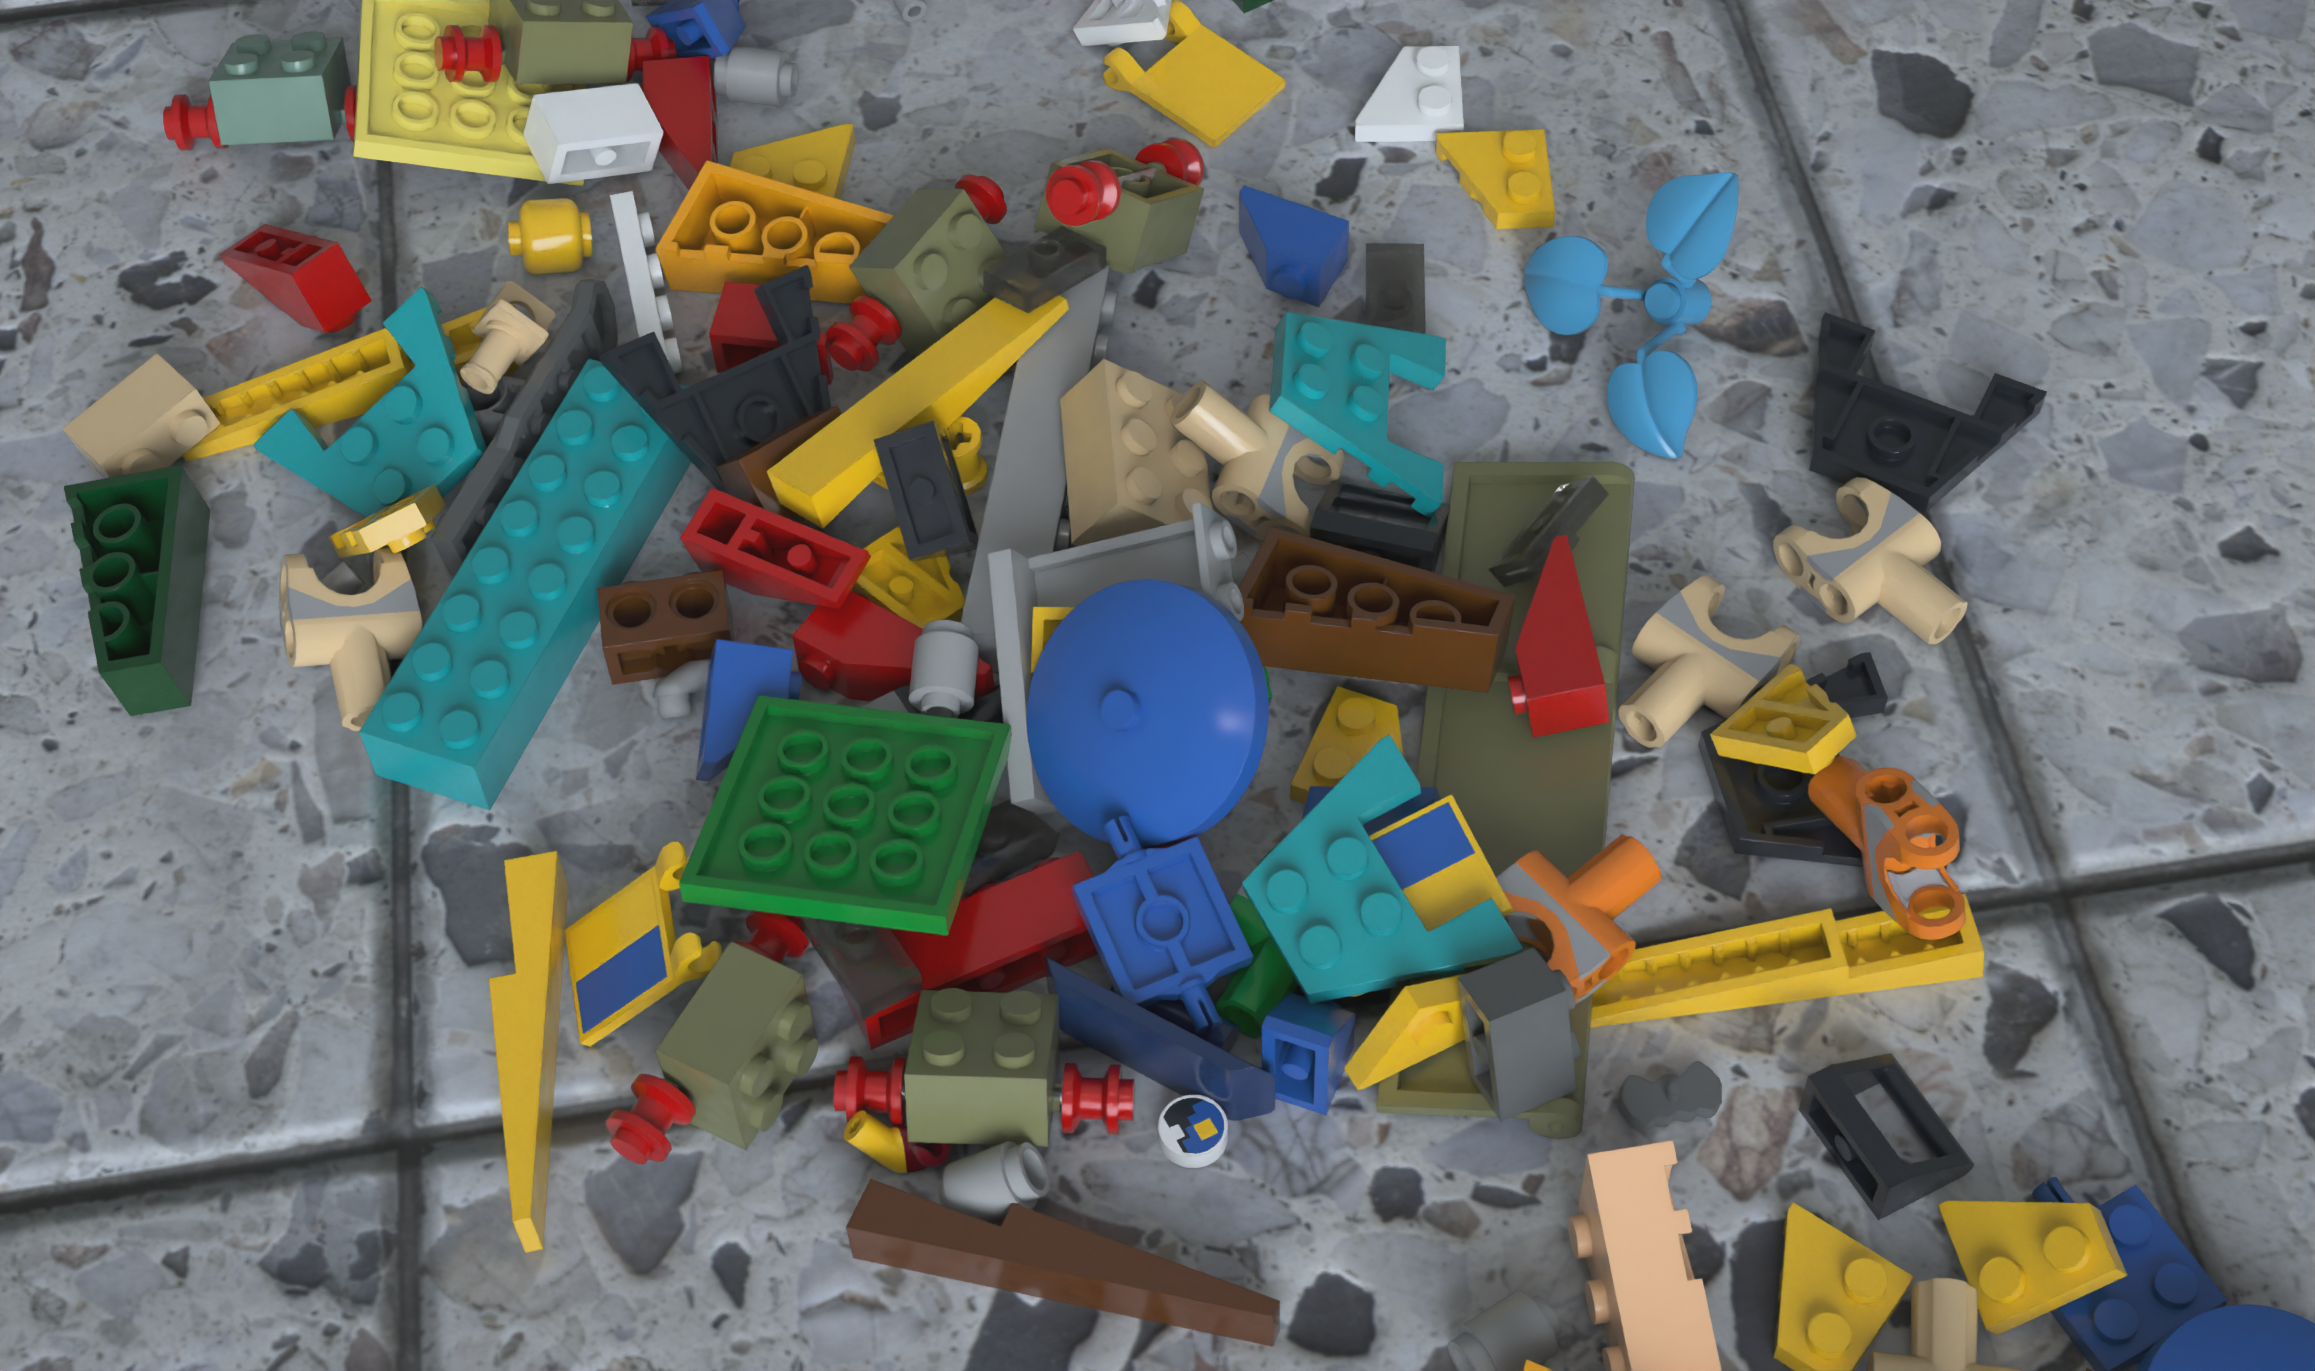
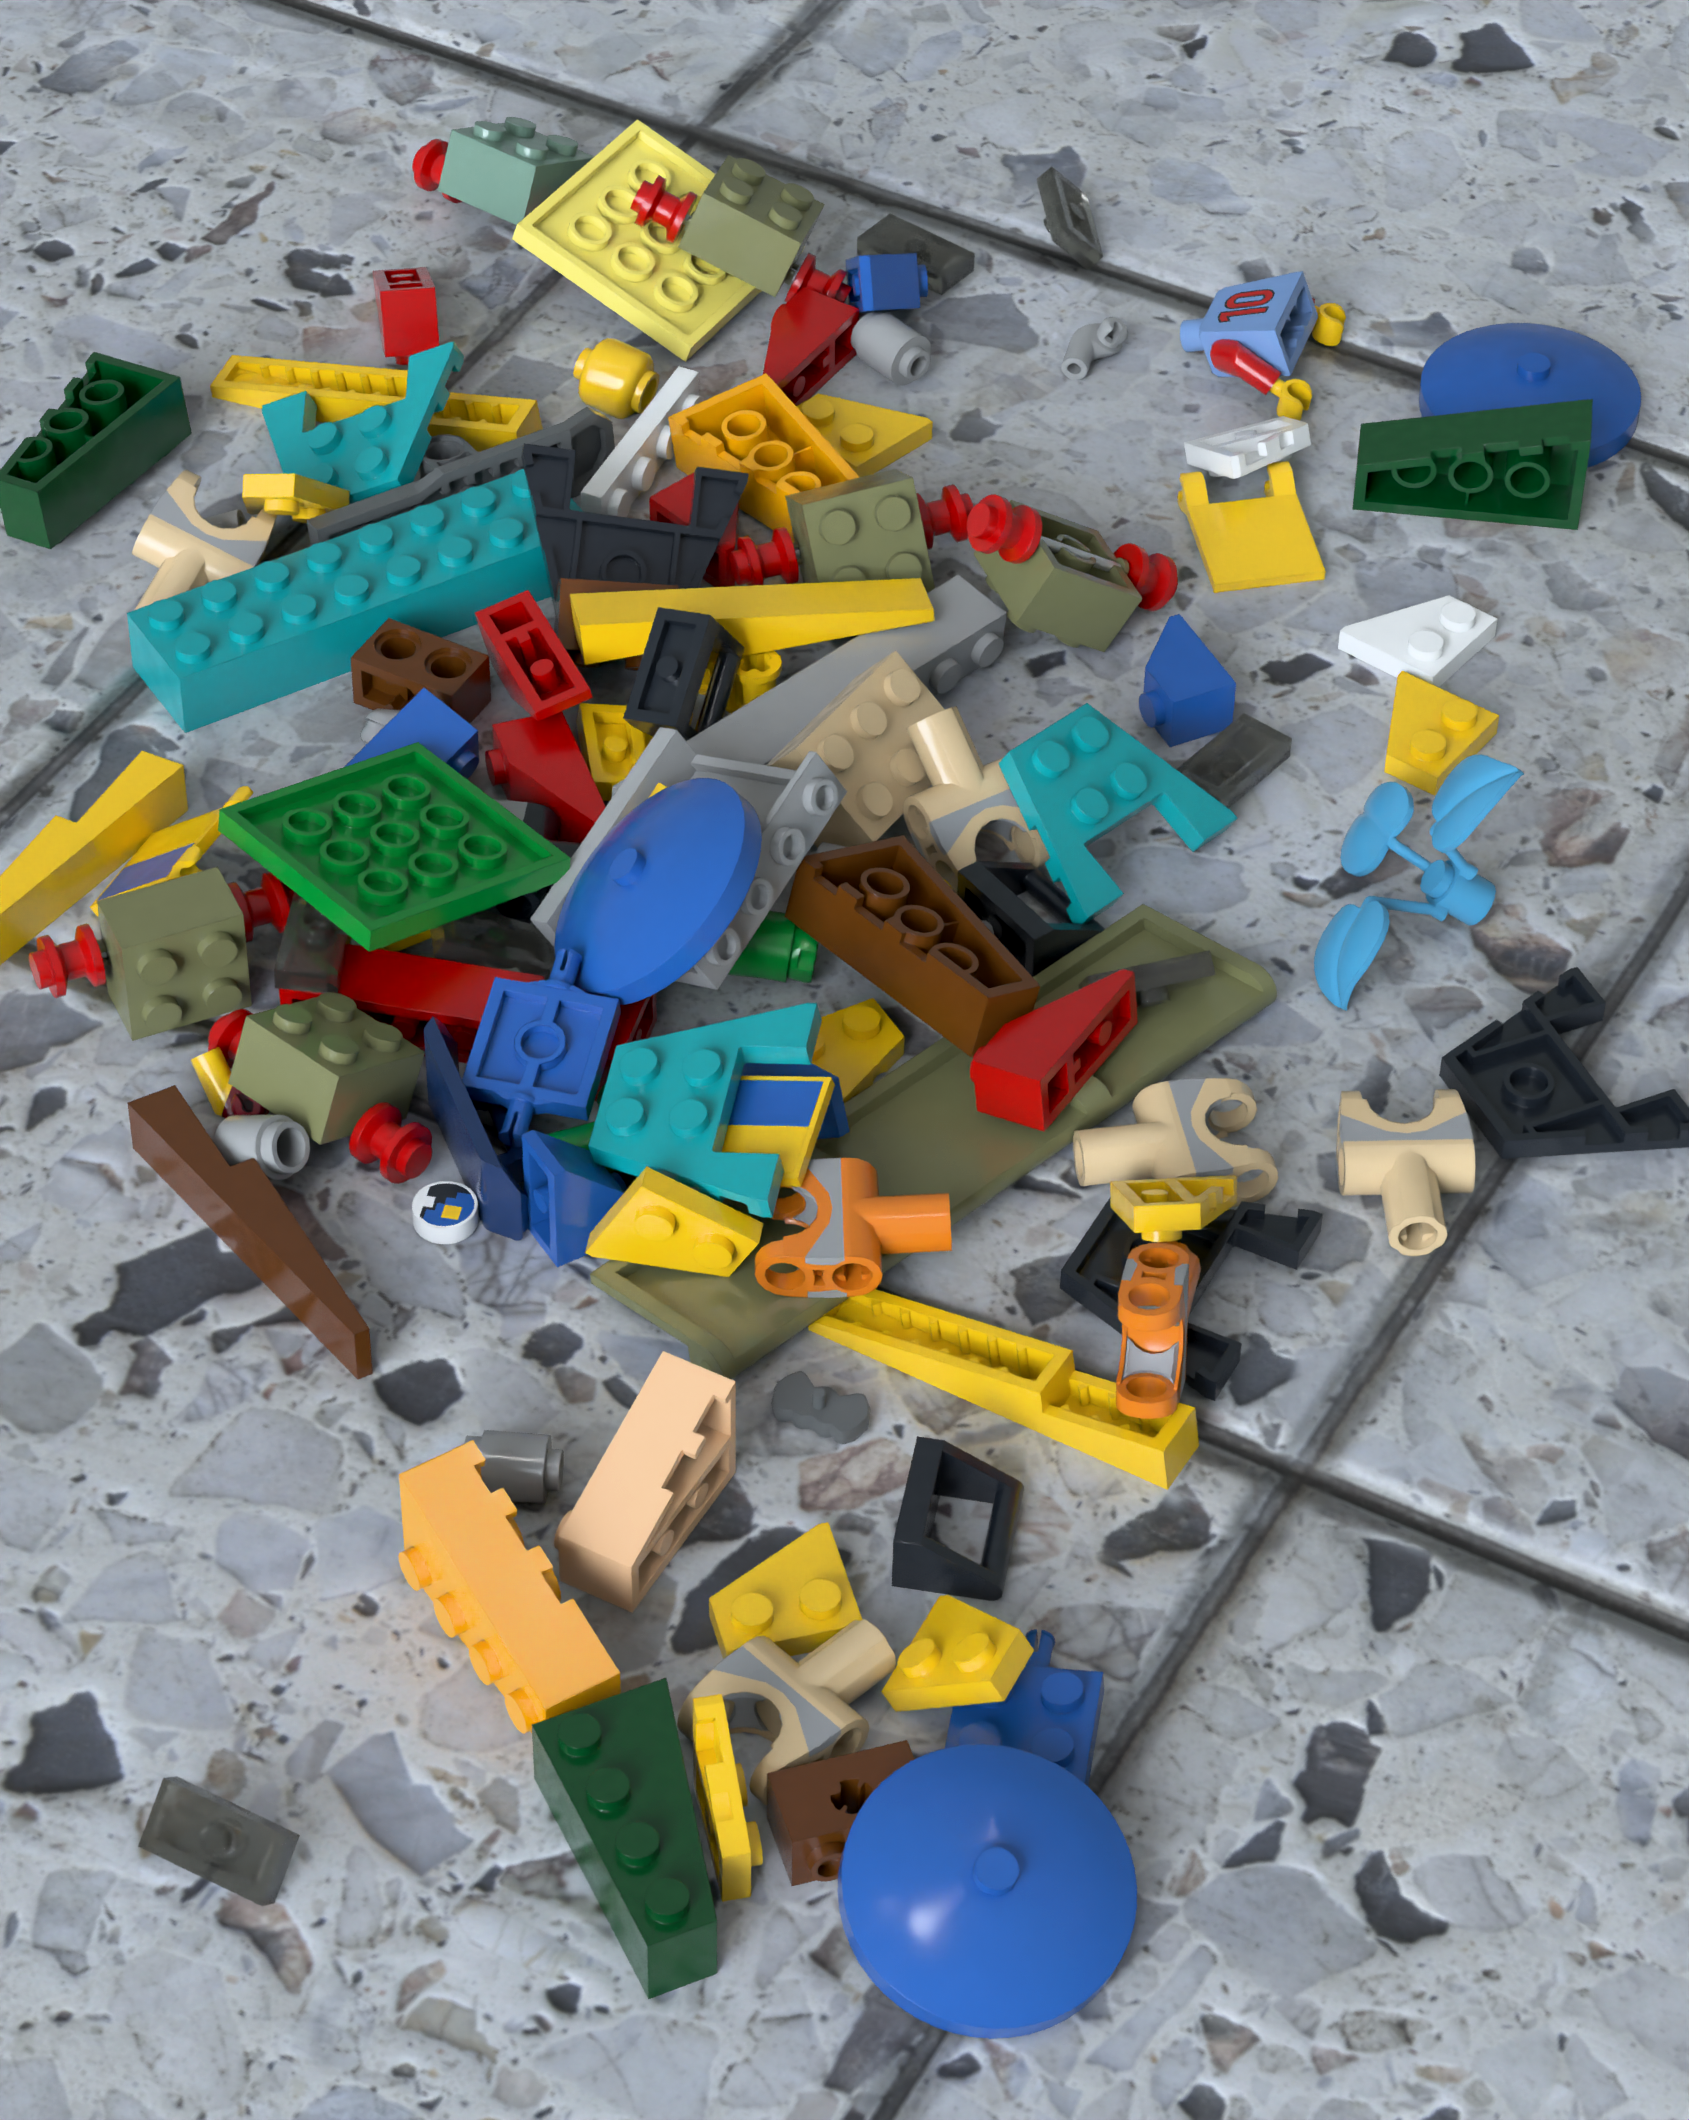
camera: 35 degrees right, 10 degrees down
(142, 422) = (199, 344): tan brick -> none
(506, 336) = (493, 415): tan bracket -> none
(592, 133) = (713, 318): white brick -> none
(944, 669) = (564, 798): light grey brick -> none
(1044, 269) = (938, 578): clear smoke plate -> none
(1519, 1033) = (713, 1261): dark grey brick -> none

